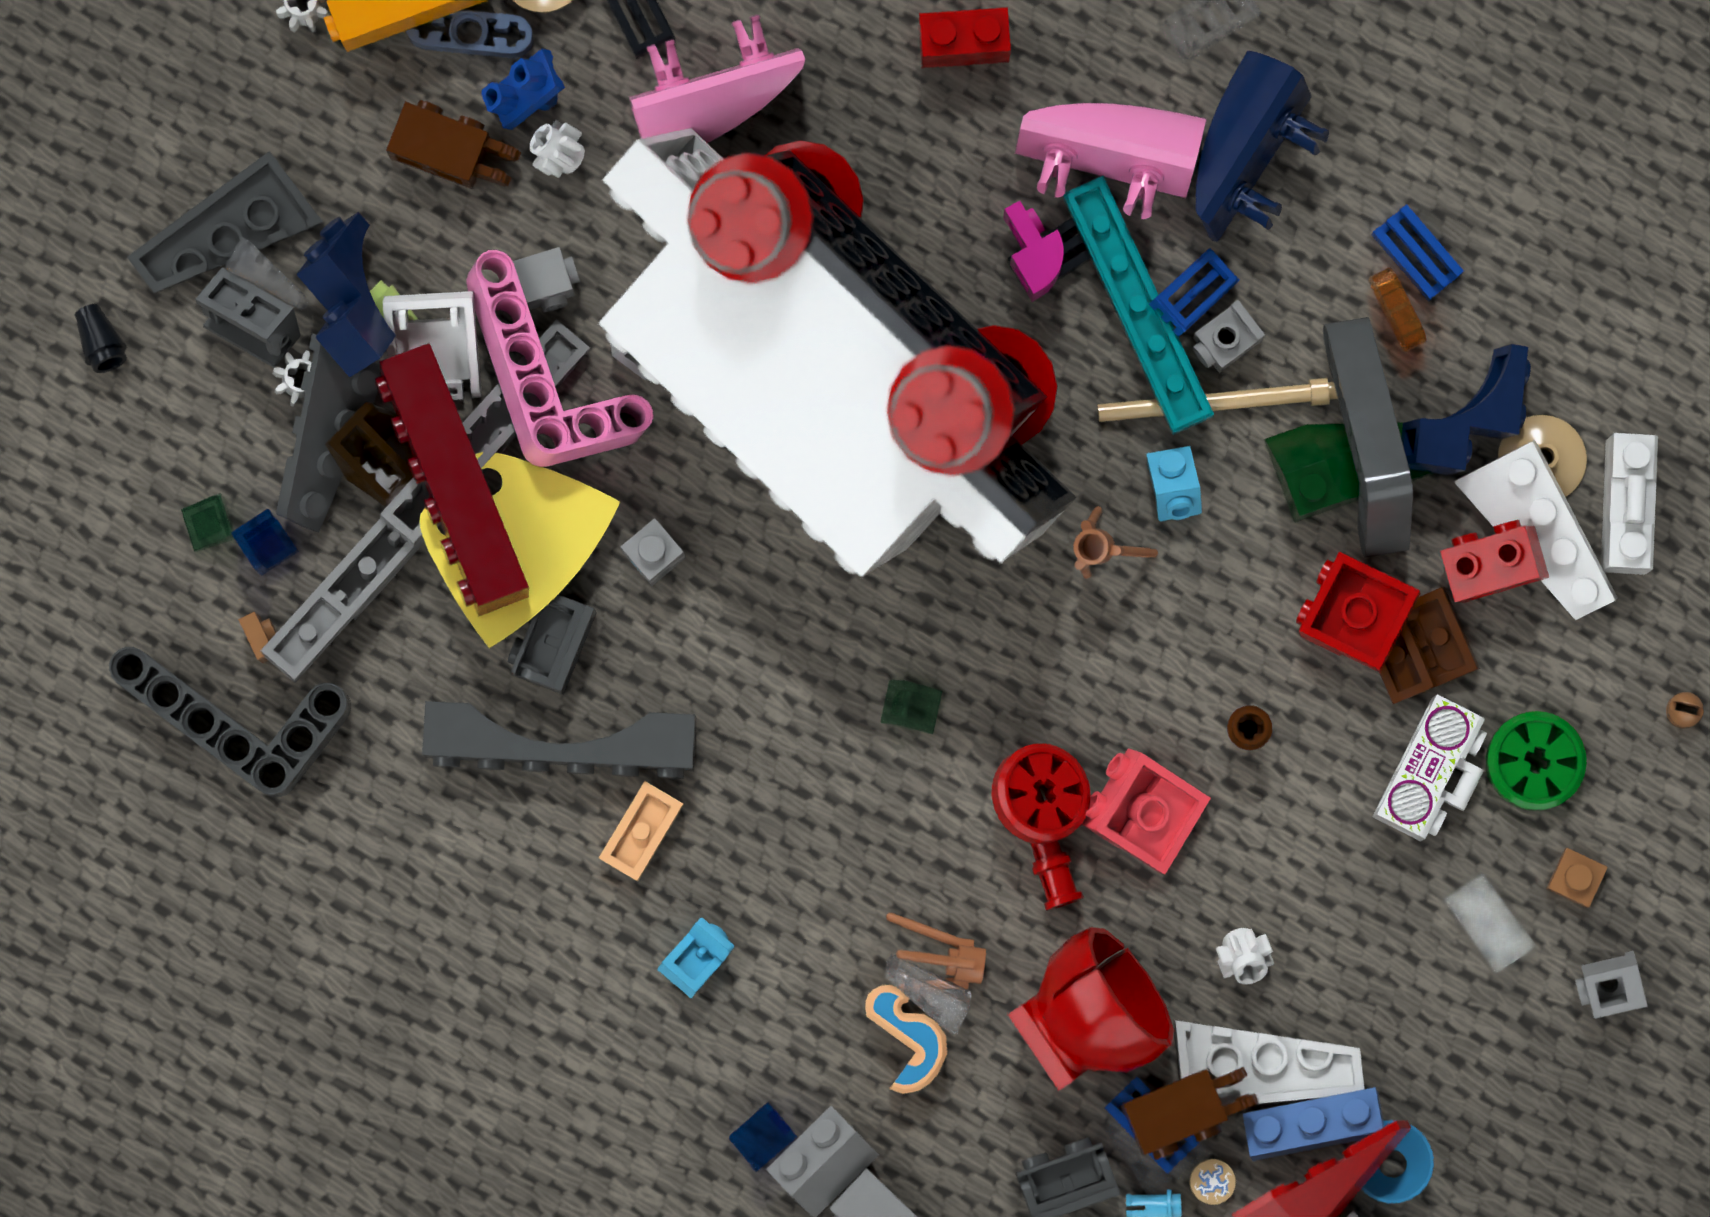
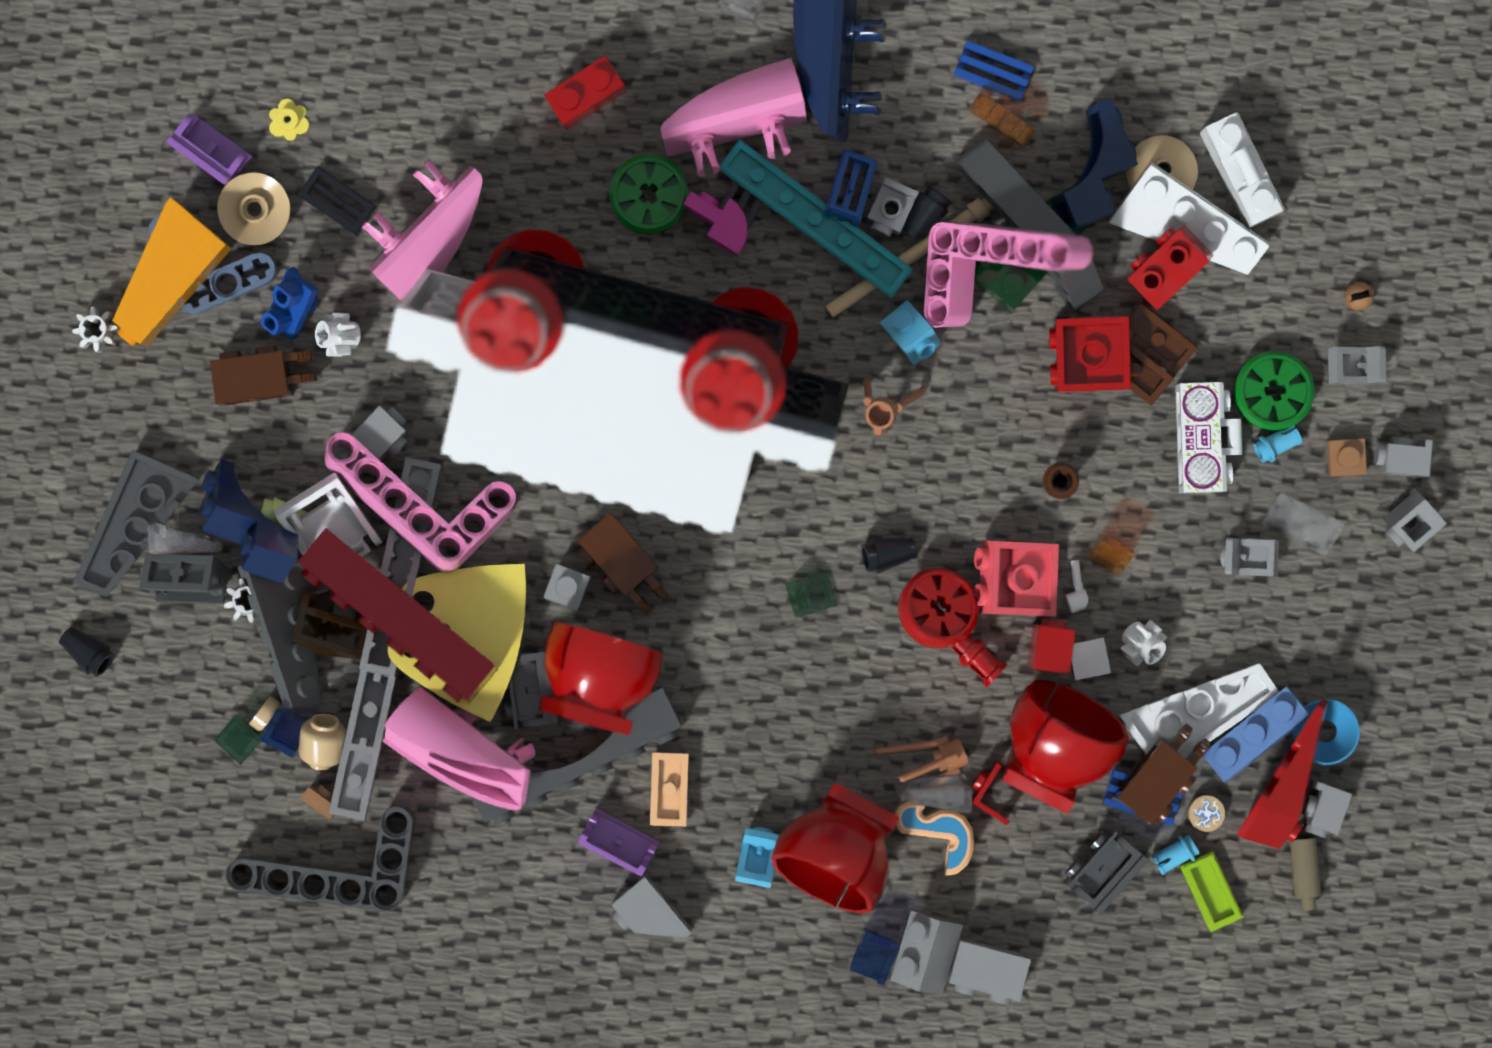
camera: 25 degrees left, 5 degrees up
(250, 509) = (264, 714): none -> tan tile
(295, 572) = (321, 741): none -> tan head
(436, 660) = (457, 752): none -> bright pink piece
(544, 950) = (648, 911): none -> light grey slope
(554, 857) = (618, 842): none -> medium lavender hinge
(631, 661) = (596, 677): none -> red plate
(727, 555) = (621, 560): none -> reddish brown hinge
(786, 990) = (838, 847): none -> red plate
(949, 169) = (626, 194): none -> green wheel
(982, 1013) = (981, 784): none -> red bracket
(1019, 706) = (887, 553): none -> black cone
(1141, 902) = (1051, 646): none -> red brick
(1175, 941) = (1090, 659): none -> white tile
(1197, 870) = (1078, 599): none -> white hand
(1261, 364) = (927, 211): none -> black cone
(1261, 841) = (1111, 554): none -> clear orange slope
(1263, 427) = (957, 246): none -> bright pink beam
(1412, 927) = (1250, 557): none -> light grey bracket
(1512, 820) = (1276, 443): none -> medium azure pin
(1639, 911) = (1404, 458): none -> light grey brick
(1641, 782) = (1357, 365): none -> light grey bracket

